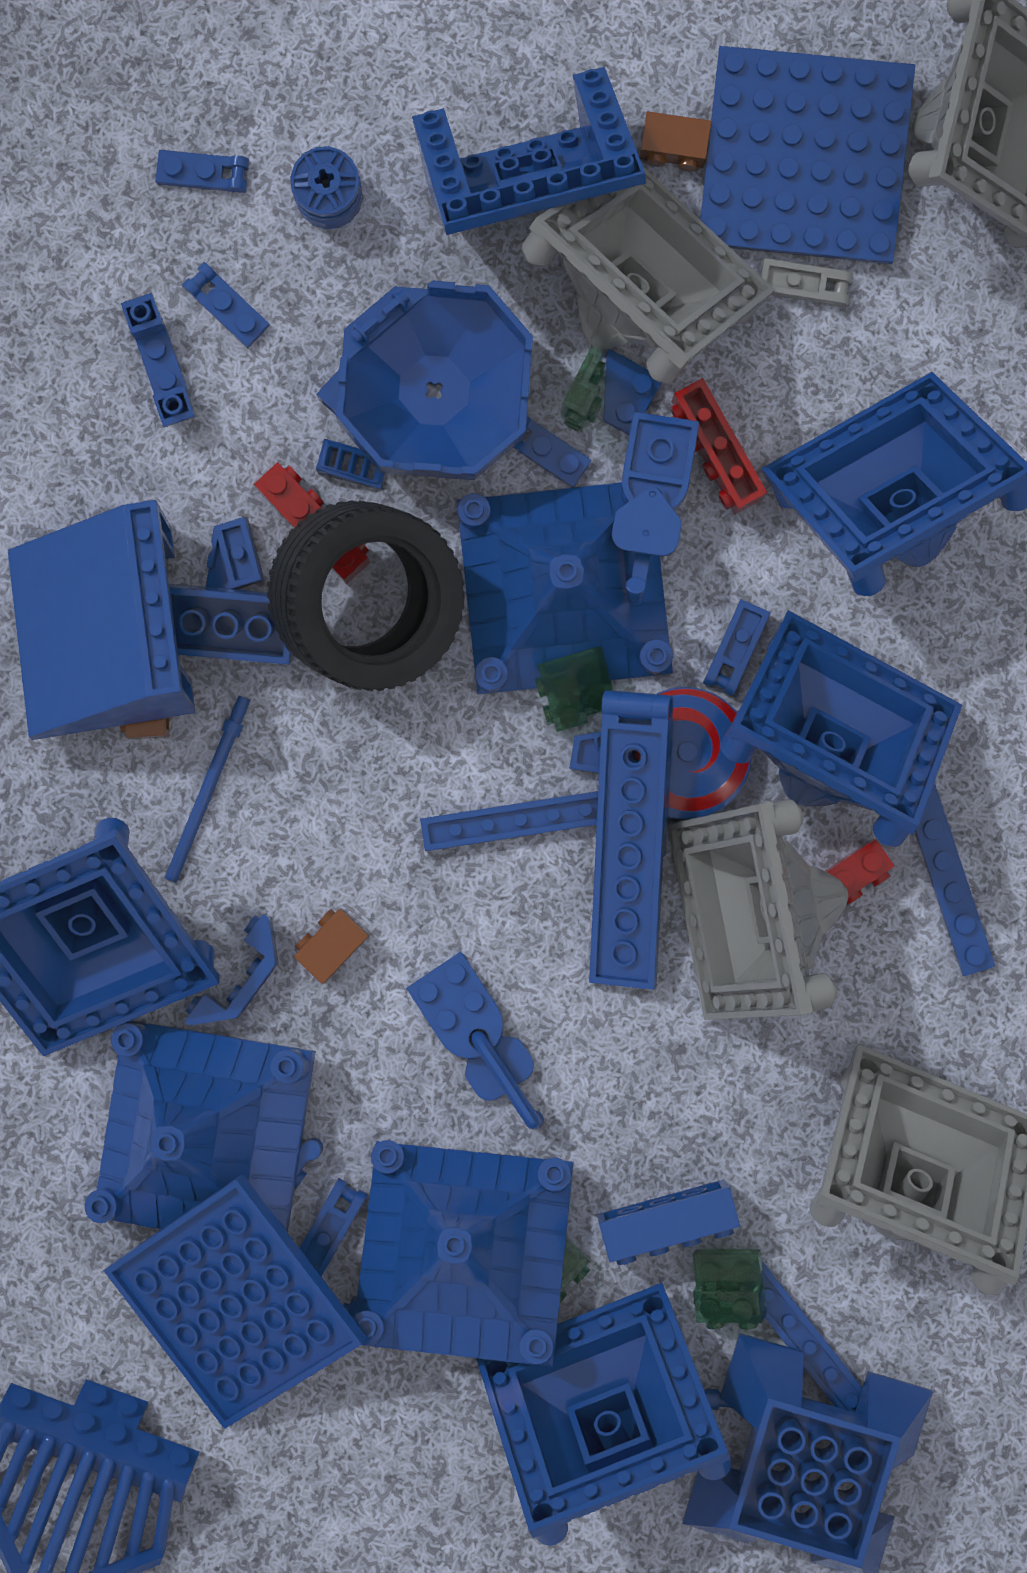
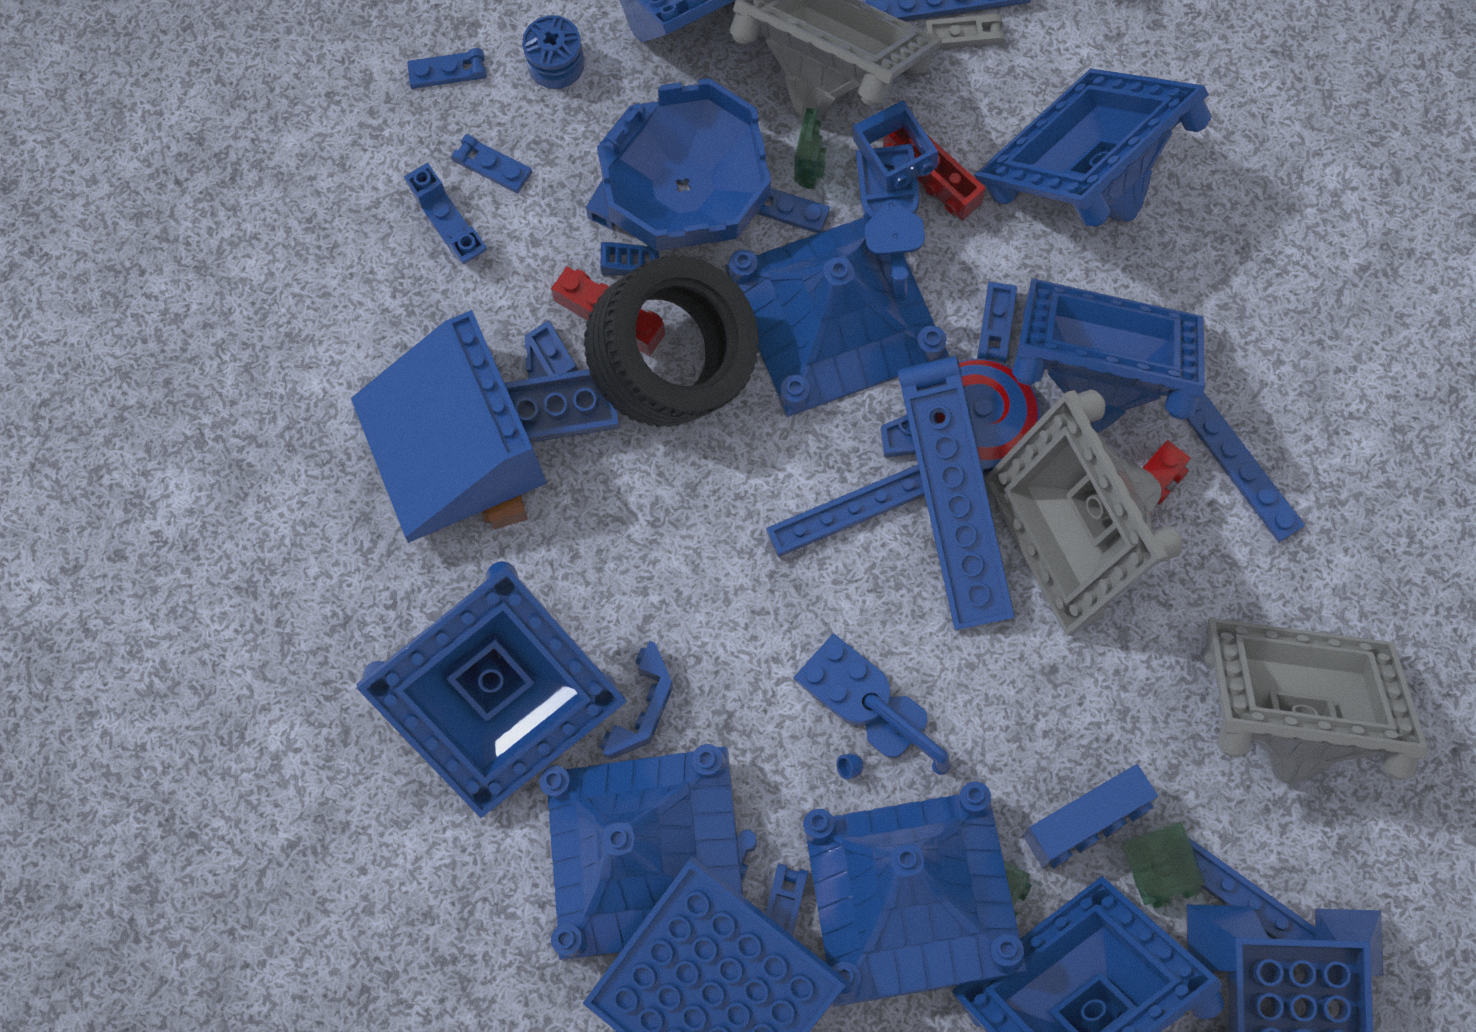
camera: 15 degrees left, 15 degrees down
(231, 729) = (580, 498): blue bar -> none
(330, 945) = (716, 656): dark orange brick -> none
(439, 1097) = (849, 765): none -> blue hinge
(573, 687) = (869, 385): clear green plate -> none
(627, 391) = (840, 150): blue wing -> none
(670, 393) = (885, 123): none -> blue window

